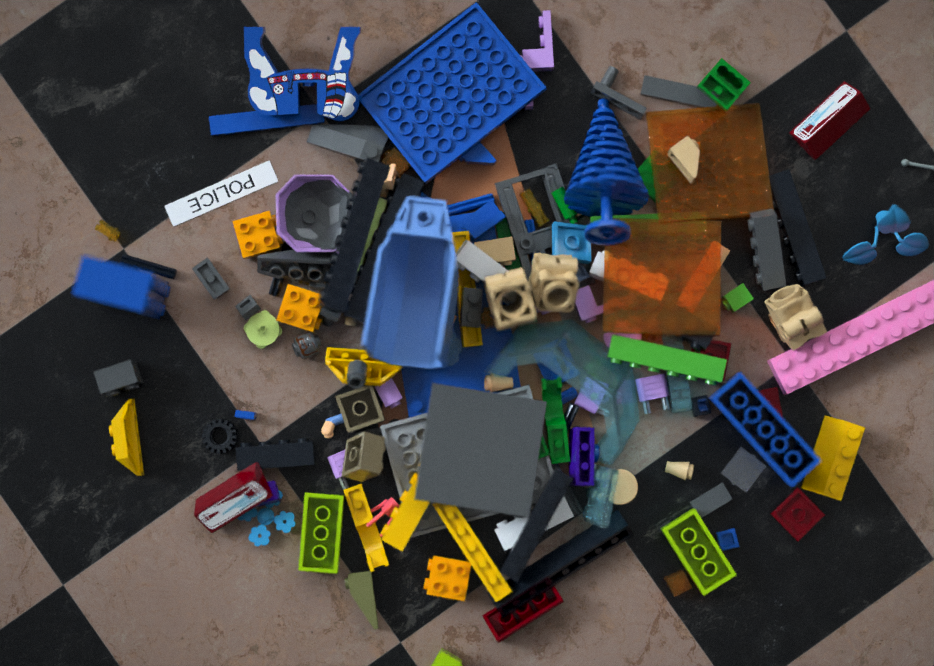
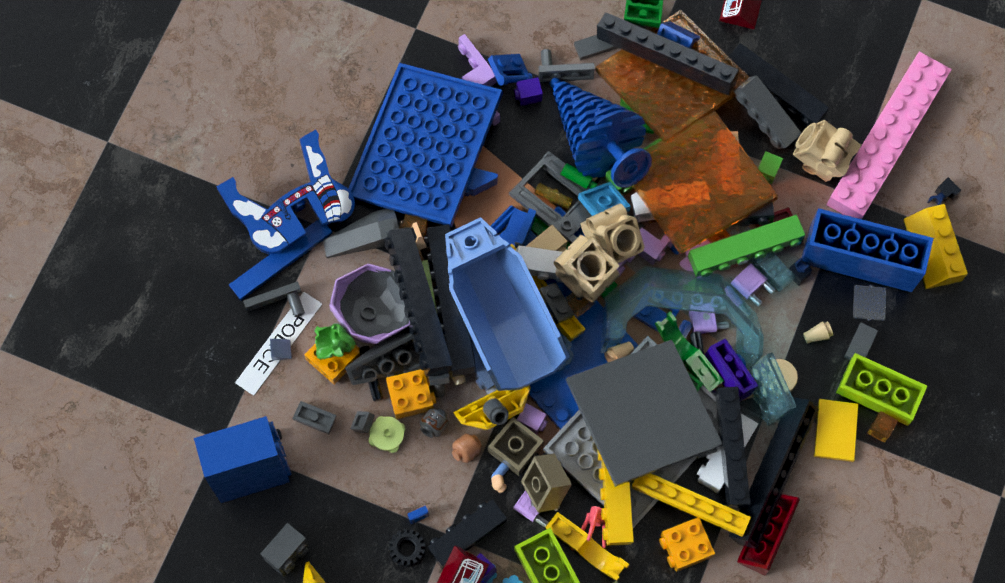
camera: 30 degrees left, 15 degrees down
(107, 230) = (196, 431): clear yellow pin -> none
(218, 201) = (280, 349): none -> sand blue slope
(256, 157) = (289, 291): none -> dark grey piece
(259, 228) = (333, 341): none -> bright green hair
(319, 383) = (466, 448): none -> nougat head
(571, 62) = (508, 64): none -> blue plate
(573, 97) = (528, 91): none -> dark purple brick
(638, 560) = (836, 430): none -> yellow tile
(686, 157) = (653, 79): tan slope -> none
(714, 141) = (667, 53): none -> black brick
(727, 539) = (898, 364): blue tile -> none
(735, 129) = (677, 34): none -> blue panel
(797, 514) = (939, 311): dark red tile -> none
(876, 414) = (944, 191): none -> black piece
(888, 221) = (853, 25): dark azure plant -> none

